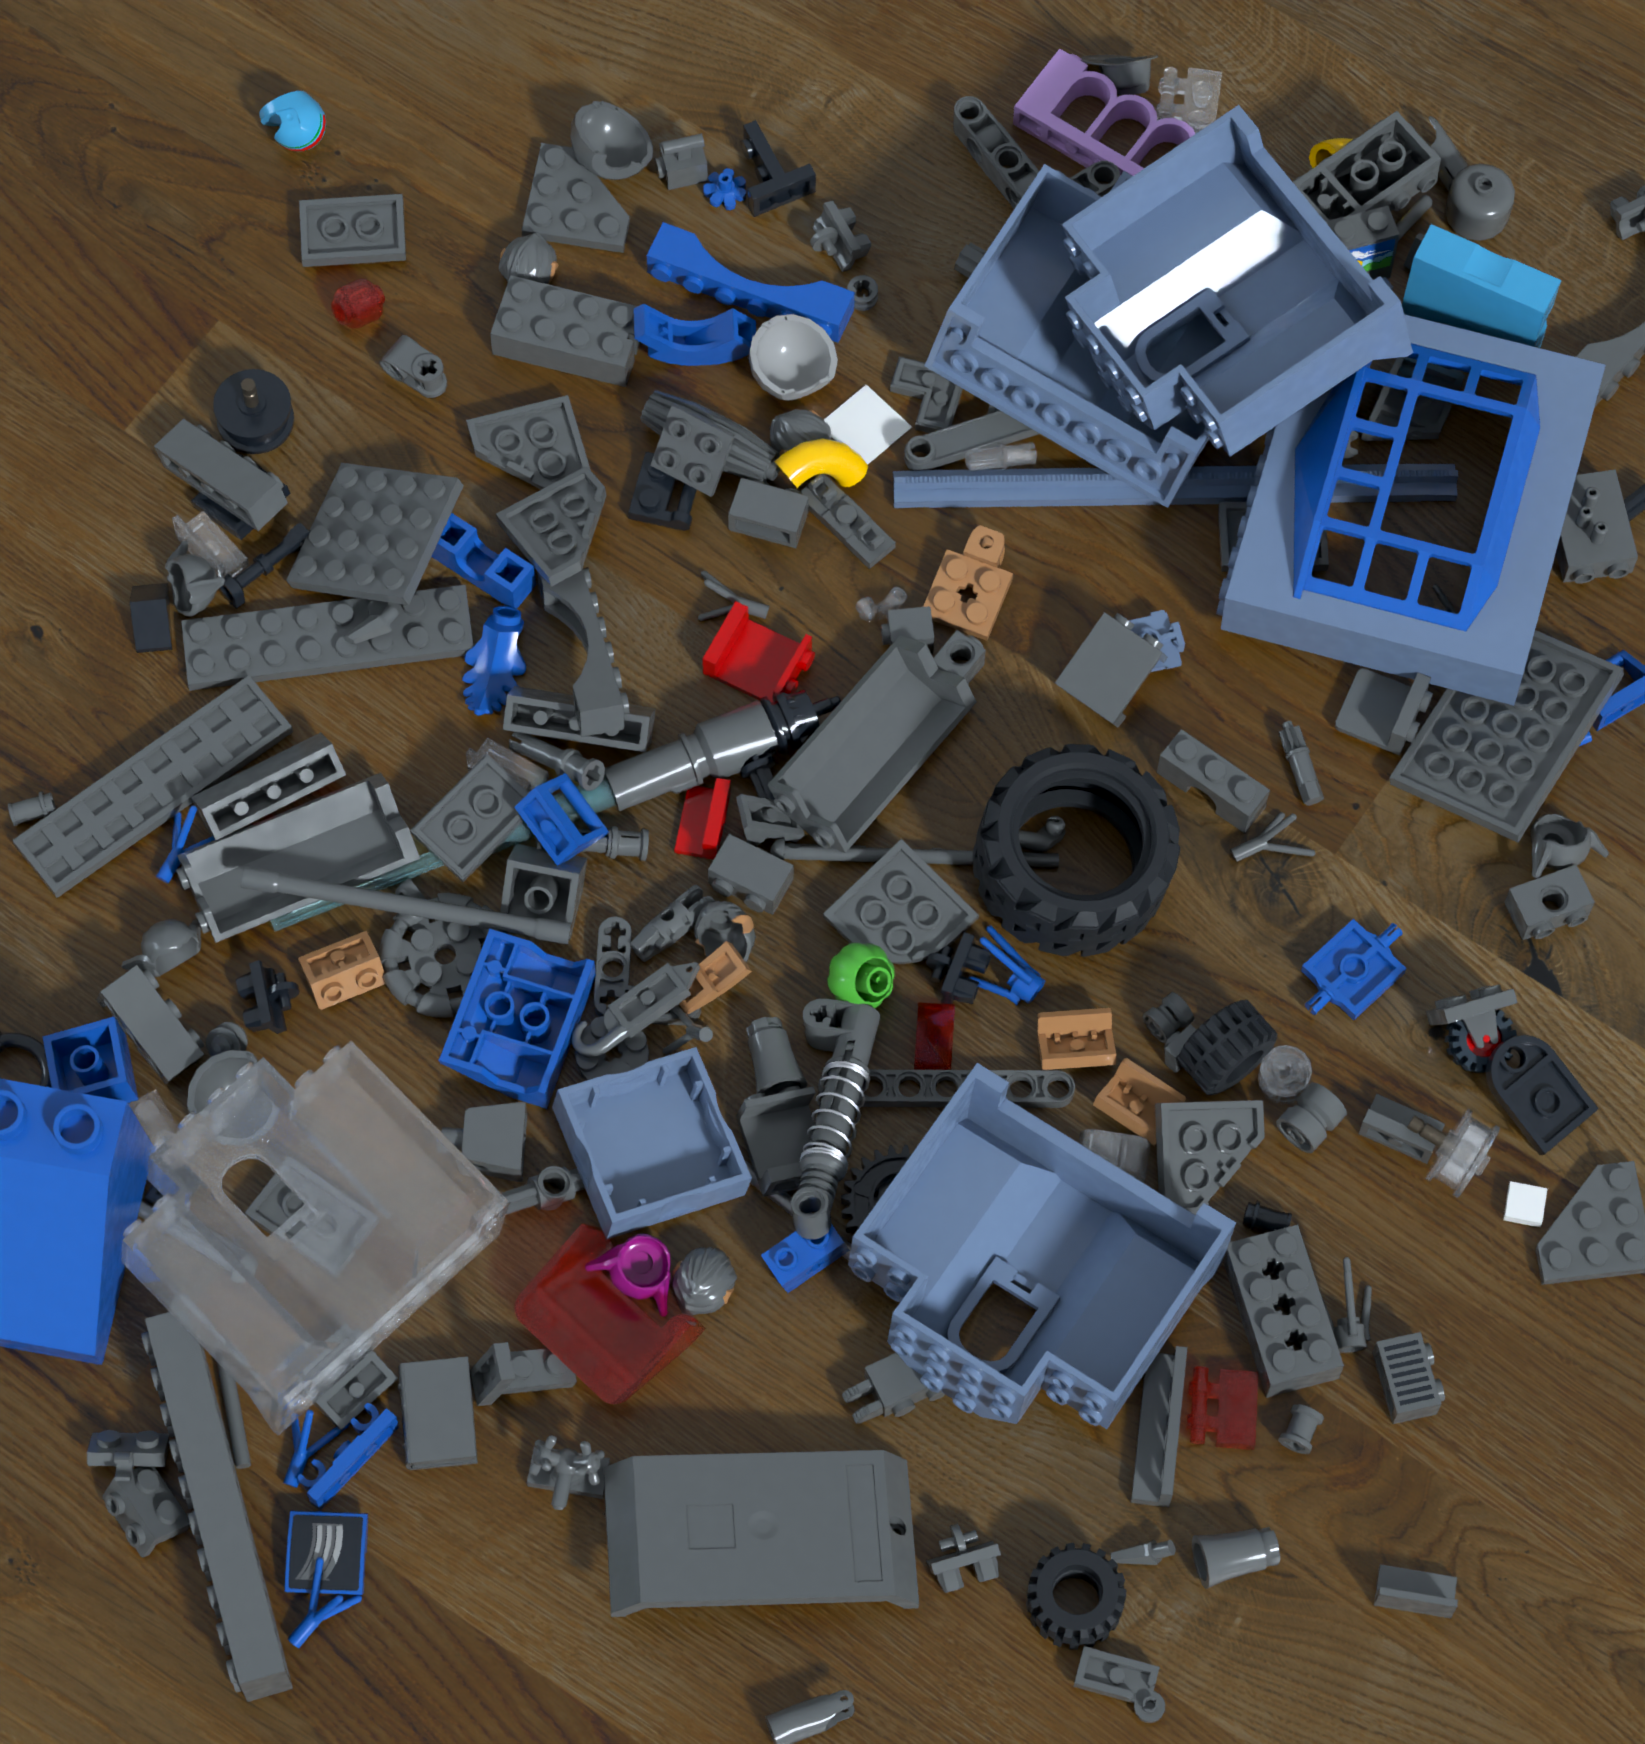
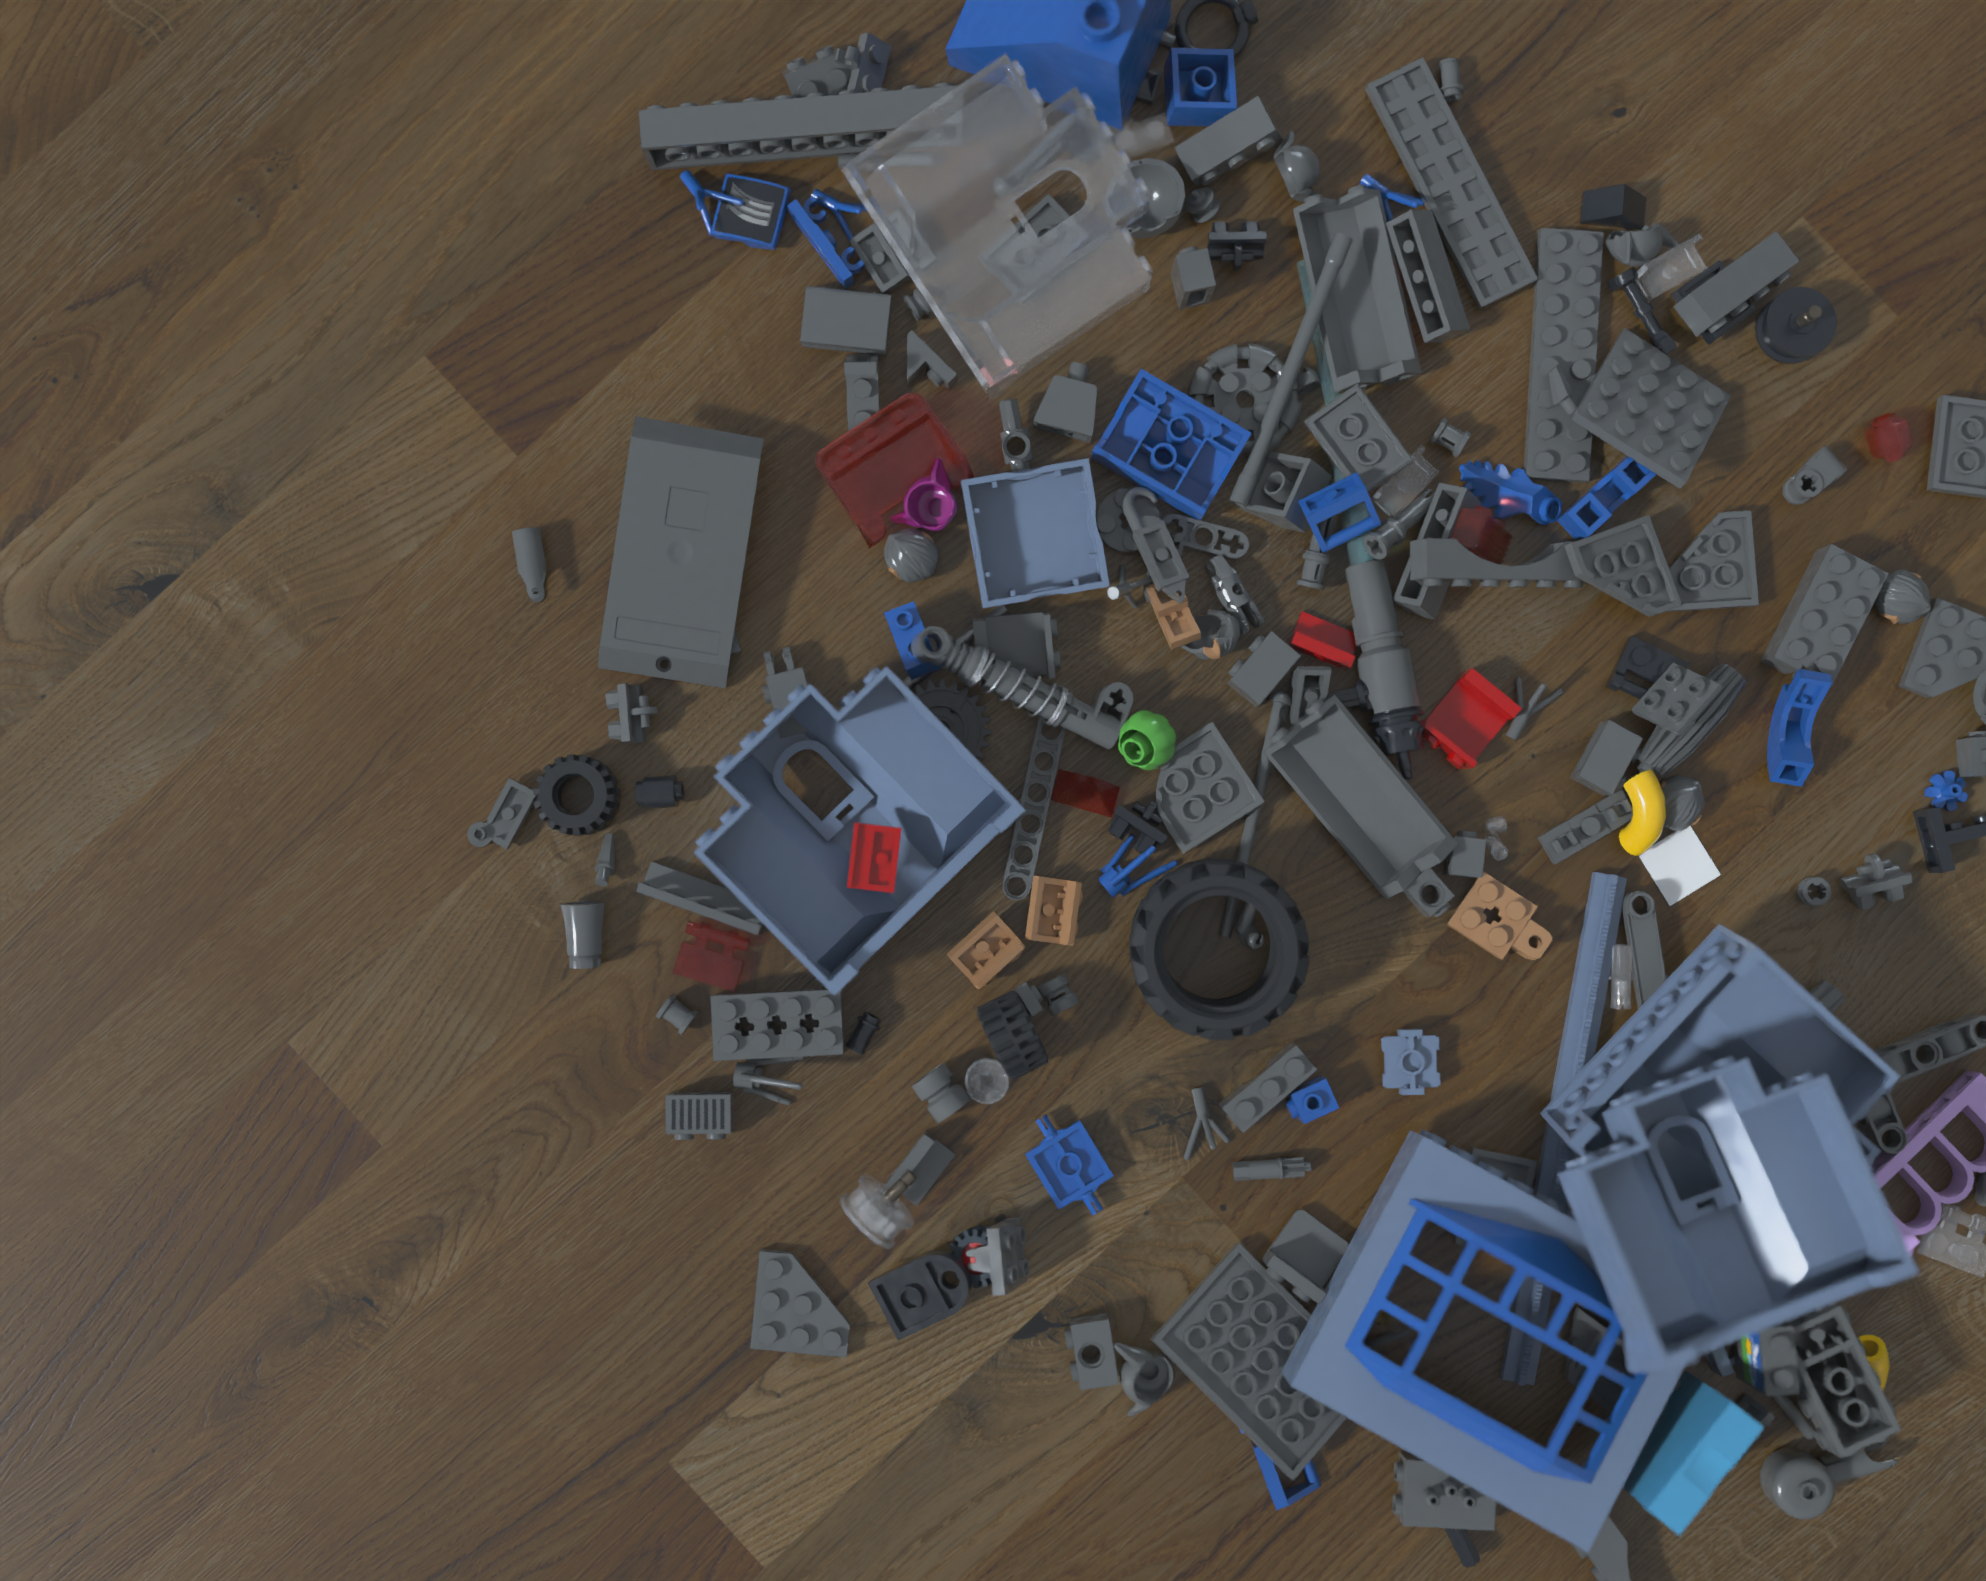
camera: 100 degrees right, 20 degrees up
(317, 1028) = (1192, 278): none -> dark grey piece
(343, 970) = (1249, 311): medium nougat bracket -> none
(404, 1334) = (917, 305): none -> dark grey bush
(445, 732) = (1450, 437): none -> dark grey bush
(467, 1316) = (922, 357): none -> dark grey slope
(554, 674) = (1482, 534): none -> clear red brick
(567, 1471) = (773, 413): dark grey piece -> none
(681, 258) = (1806, 842): blue arch -> none
(773, 1057) = (1090, 652): dark grey plant -> none
(792, 357) = (1756, 809): light grey cylinder -> none
(938, 394) = (1688, 934): dark grey tile -> none
(1048, 1505) = (659, 792): none -> black brick
(1067, 1229) = (874, 857): none -> red plate
(1110, 667) = (1390, 1023): dark grey panel -> none
(1122, 1150) = (945, 917): clear beam -> none
(1203, 1146) = (933, 992): dark grey plate -> none
(1216, 731) = (1311, 1100): none -> blue brick
(1416, 1591) = (523, 1072): dark grey panel -> none
(1525, 1204) = (830, 1254): white tile -> none

